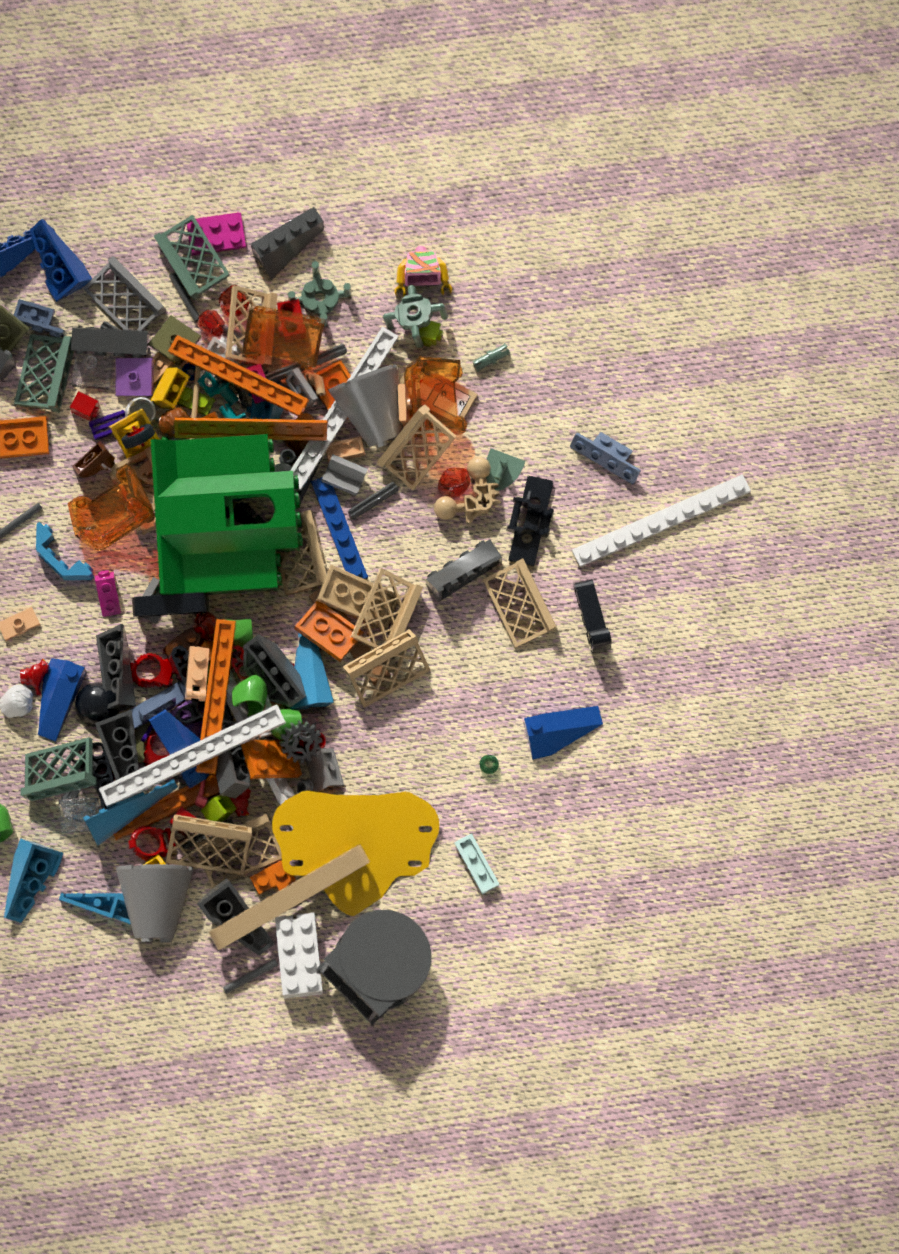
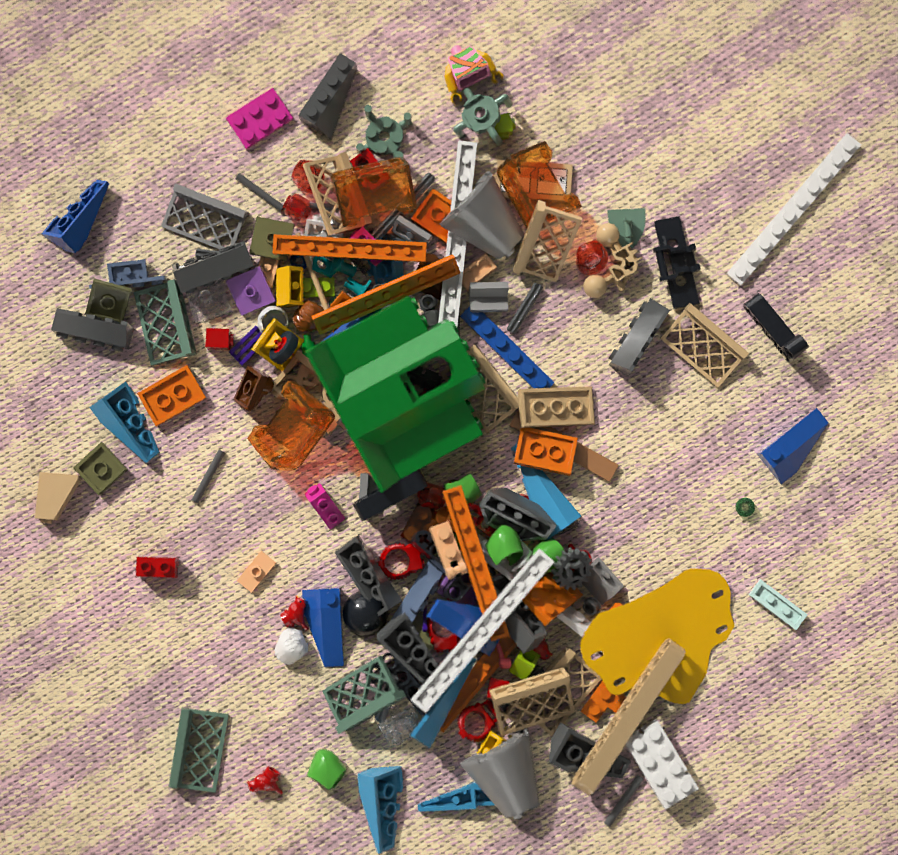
camera: 25 degrees left, 10 degrees up
(62, 267) = (131, 214): blue wedge -> none
(77, 572) = (241, 480): dark azure slope -> none
(177, 263) = (236, 161): sand green fence -> none
(316, 381) = (421, 219): tan arm -> none
(379, 962) = (739, 741): dark grey brick -> none
(384, 654) = (606, 455): tan fence -> none
(402, 616) = (603, 410): tan fence -> none
(404, 404) = (514, 205): light nougat plate -> none
(491, 357) = (569, 123): sand green pin -> none
(608, 454) = (717, 168): sand blue bracket -> none

